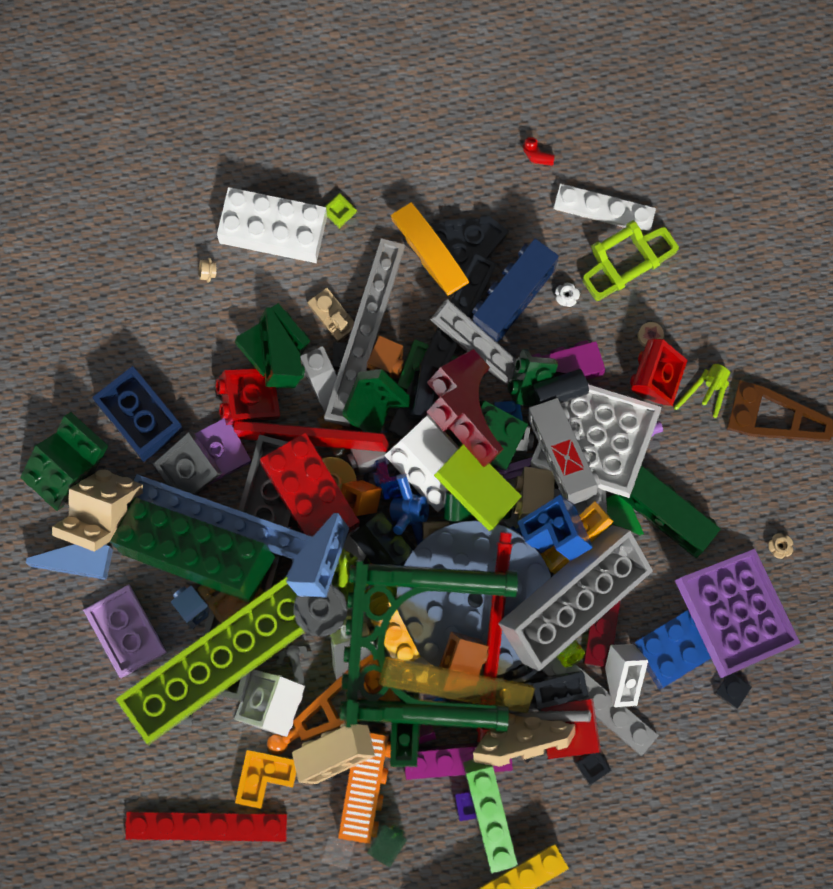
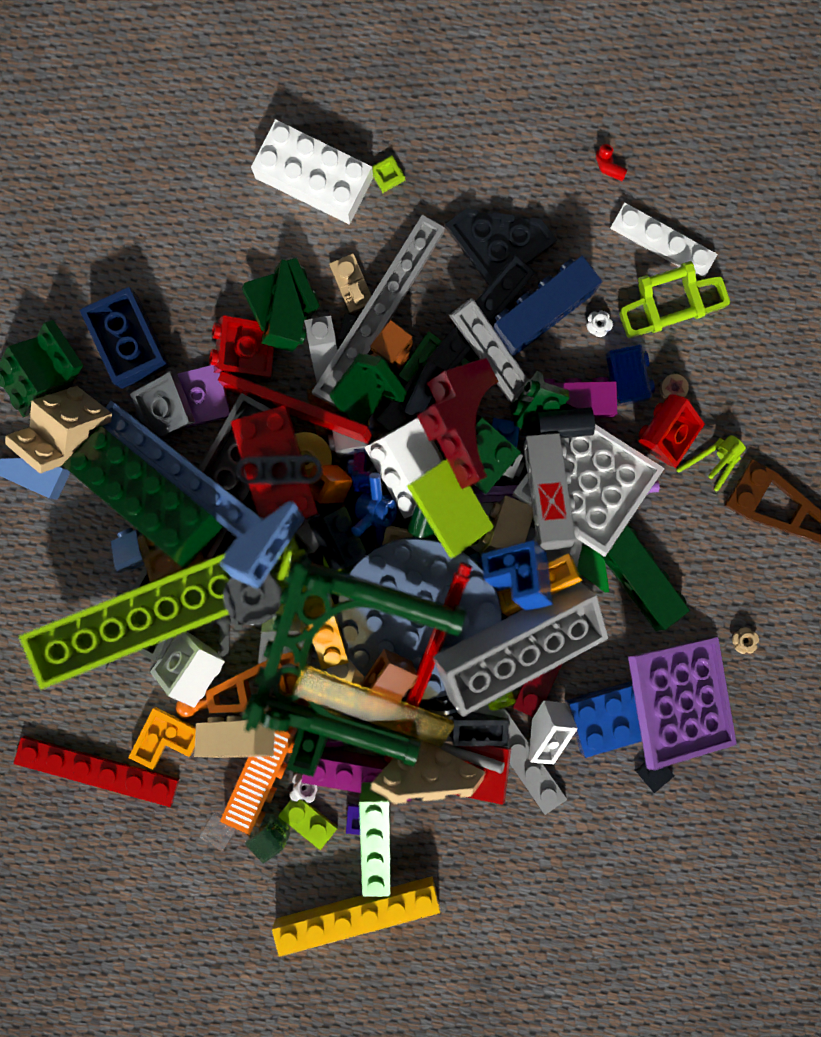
camera: 15 degrees right, 10 degrees up
(124, 631) = (62, 556): lavender tile -> none
(207, 270) = (234, 203): tan plate -> none
(328, 479) = (267, 463): none -> black beam
(414, 787) = (297, 792): none -> white plate
(420, 821) = (308, 822): none -> lime plate
(429, 248) = (469, 239): light orange slope -> none
(592, 767) = (492, 814): black tile -> none
(605, 328) = (629, 370): none -> clear blue brick

